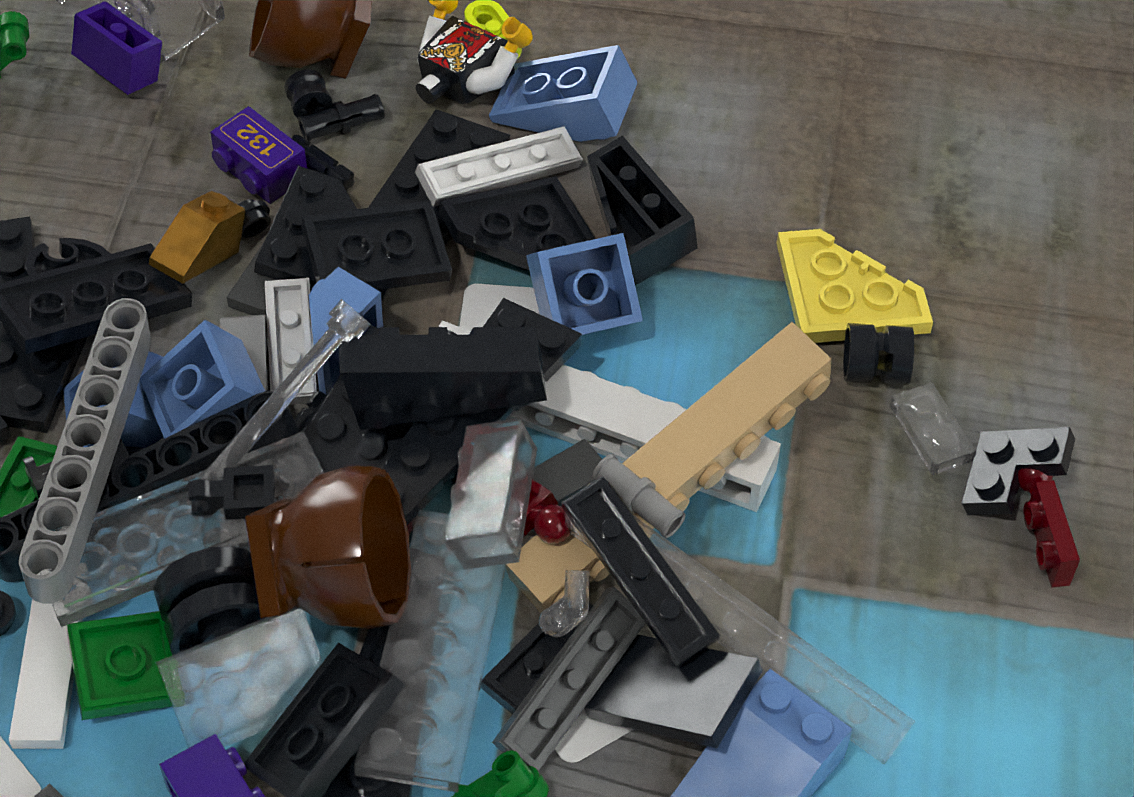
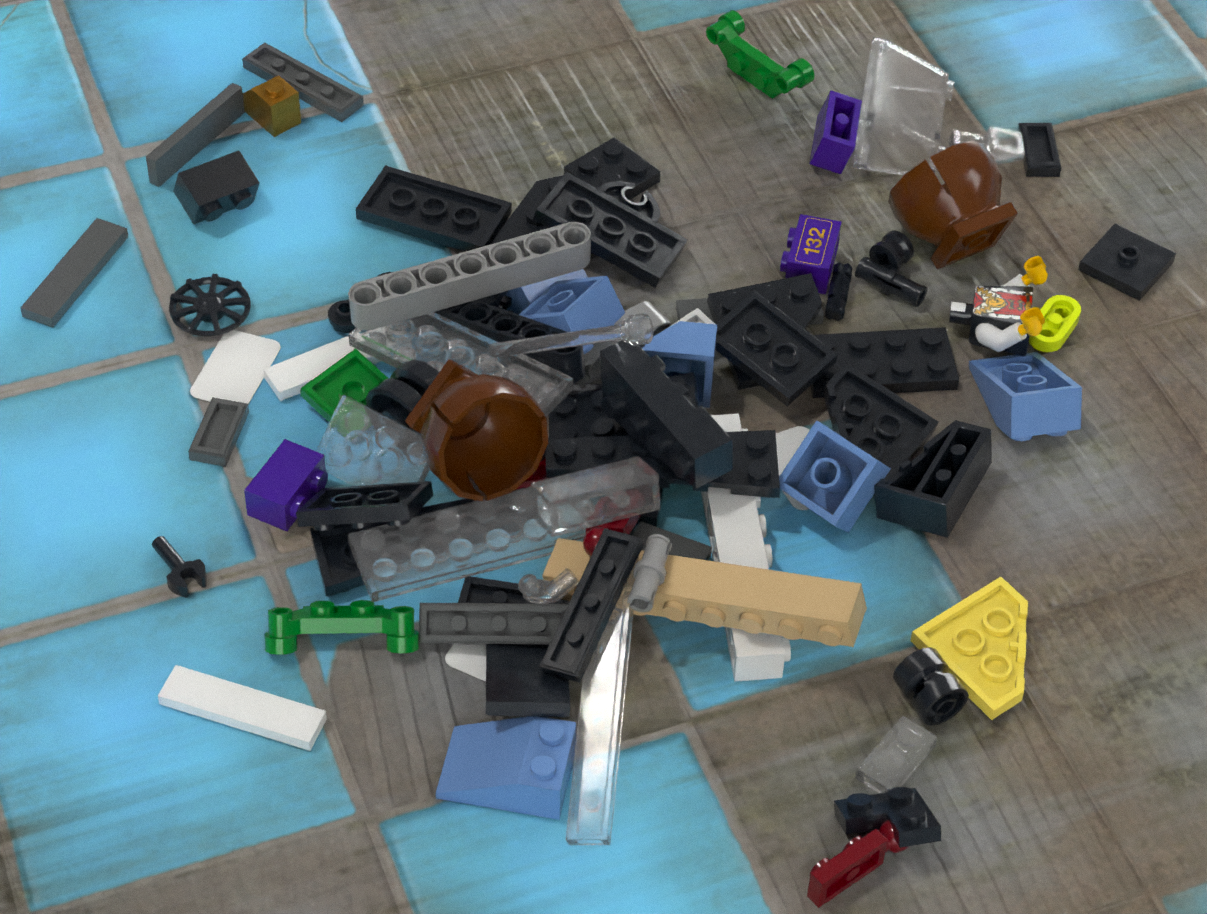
camera: 60 degrees right, 5 degrees down
(199, 237) = (706, 257): pearl gold slope -> none
(239, 493) = (491, 362): black plate -> none
(255, 218) = (752, 274): black plate -> none
(499, 165) = (917, 383): white tile -> none

